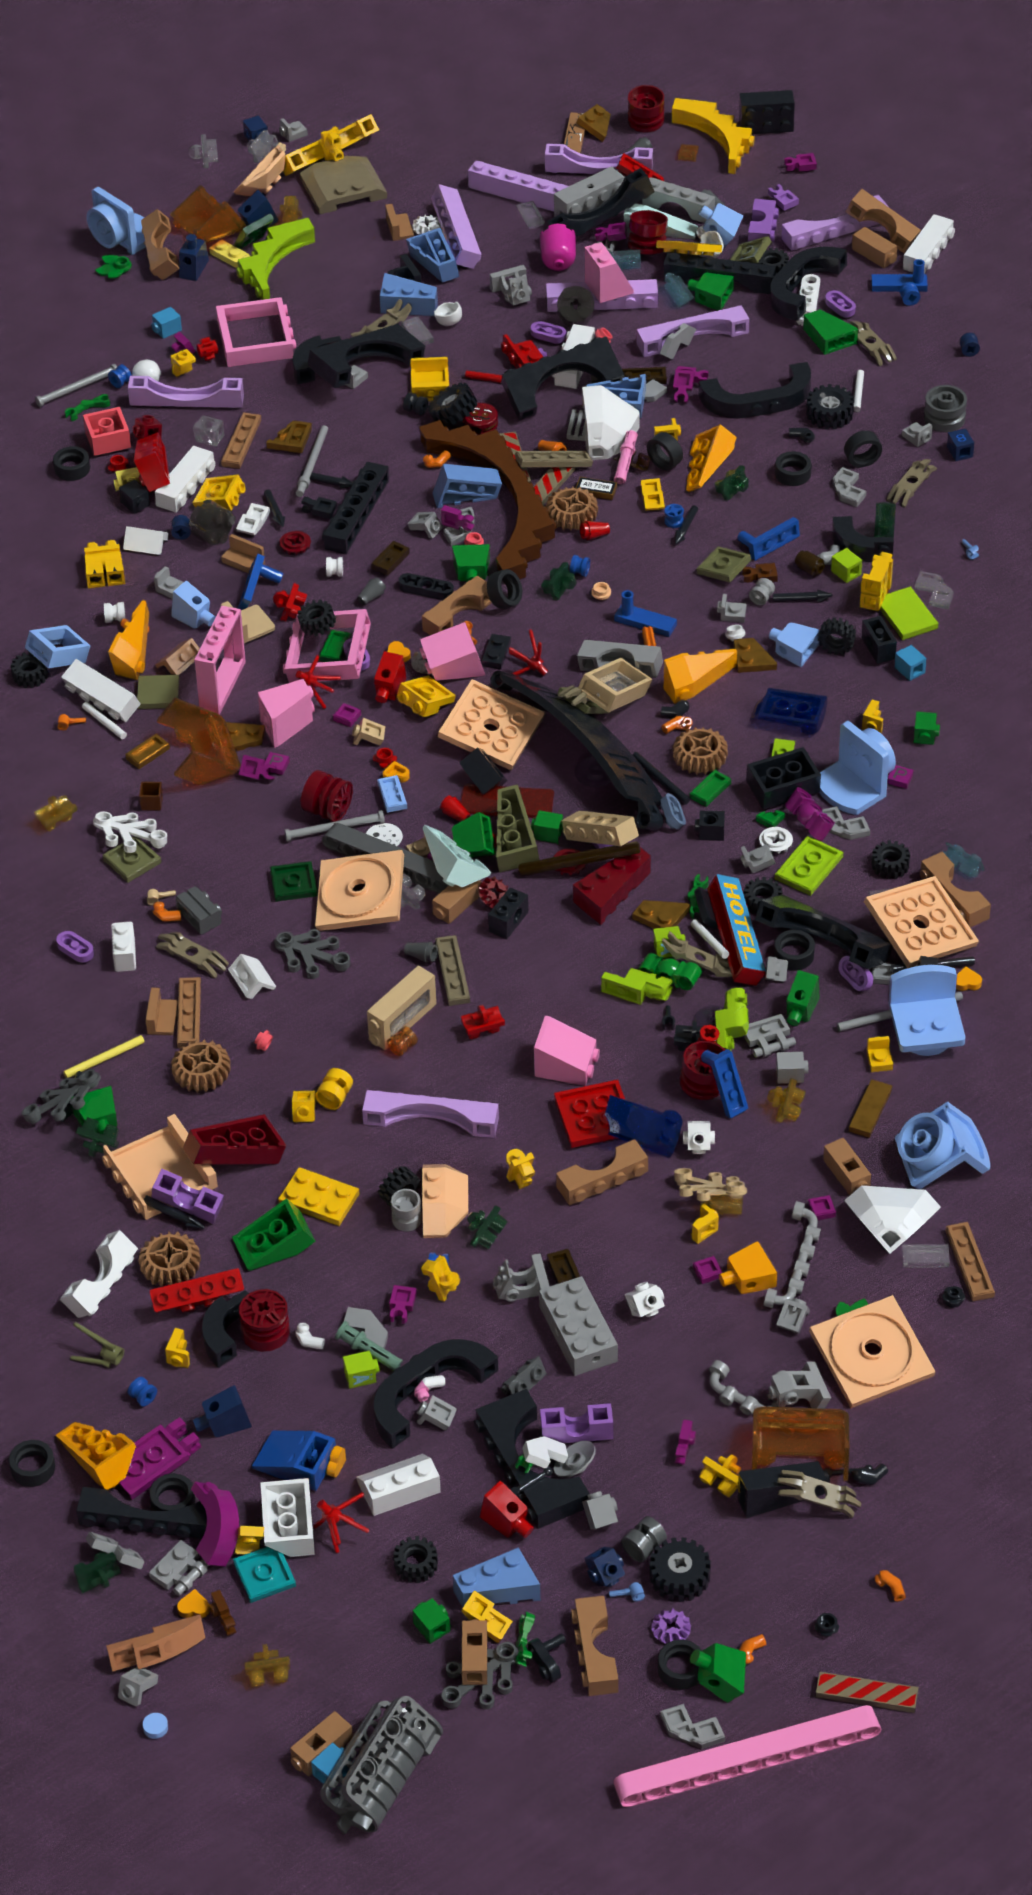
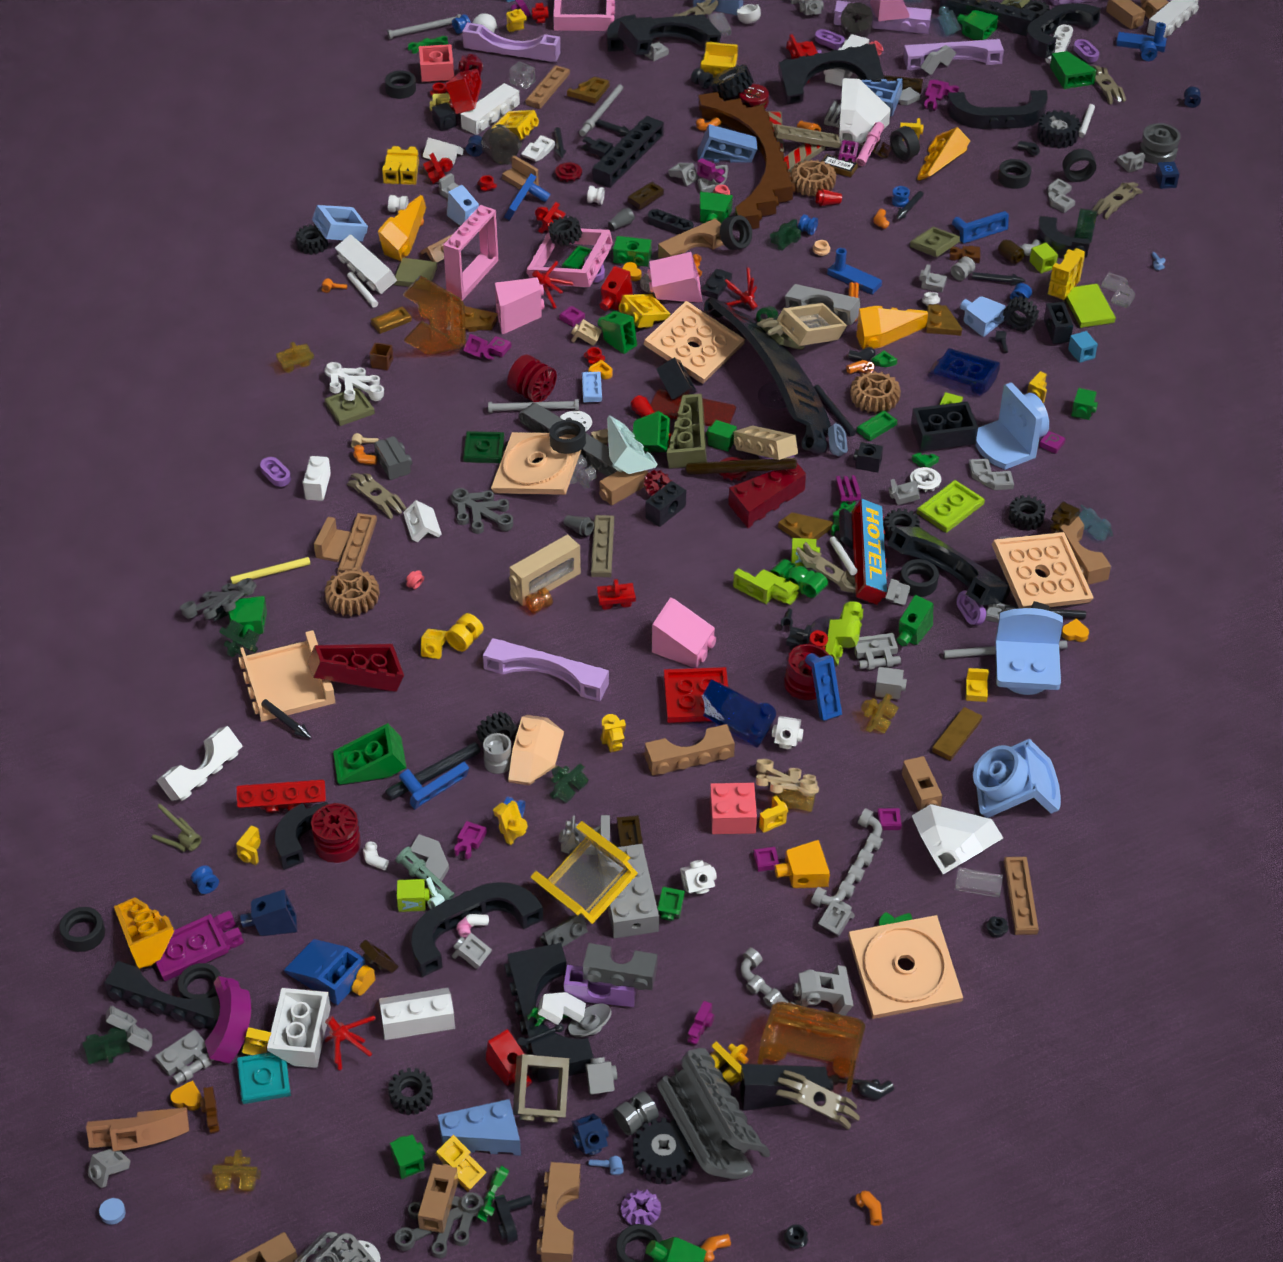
camera: 10 degrees right, 0 degrees up
(153, 557) = (436, 169): none -> red hips
(183, 1259) = (269, 760): medium nougat gear -> none
(200, 1203) = (311, 714): medium lavender arch -> none
(206, 571) = (487, 183): none -> red plate
(254, 622) = (511, 230): tan bracket -> none
(320, 1196) = (424, 727): yellow plate -> none
(340, 1266) = (422, 794): none -> blue piece
(342, 1240) = (436, 769): none -> black axle
(346, 1436) = (377, 956): none -> dark brown plate
(387, 1368) = (436, 898): none -> light aqua hand
(389, 867) = (566, 427): none -> black tyre
(394, 627) = (632, 250): none -> green brick
(405, 725) = (619, 331): none -> green torso
(483, 376) = (764, 65): red bar -> none
(526, 1530) = (528, 1114): none -> dark tan window
(538, 1315) = (589, 875): none -> piece
(563, 675) = (770, 311): none -> dark green brick
(579, 1406) = (637, 973): none -> dark grey arch
(603, 475) = (847, 155): none -> magenta tile
(624, 1330) = (670, 903): none -> green bracket
(652, 494) = (886, 177): yellow slope -> none
(657, 547) = (880, 220): none -> orange arm
(662, 1224) = (733, 808): none -> coral brick
(694, 856) = (840, 482): none -> magenta tile
(700, 711) = (884, 360): none -> green tile
(719, 1527) = (710, 1117): none -> dark grey piece
(733, 483) = (959, 177): clear green hips -> none
(809, 814) = (961, 461): magenta piece -> none
(820, 664) = (1001, 337): none -> black hand
(831, 609) = (1021, 290): none -> blue wheel
(931, 856) = (1064, 514): none -> dark brown plate

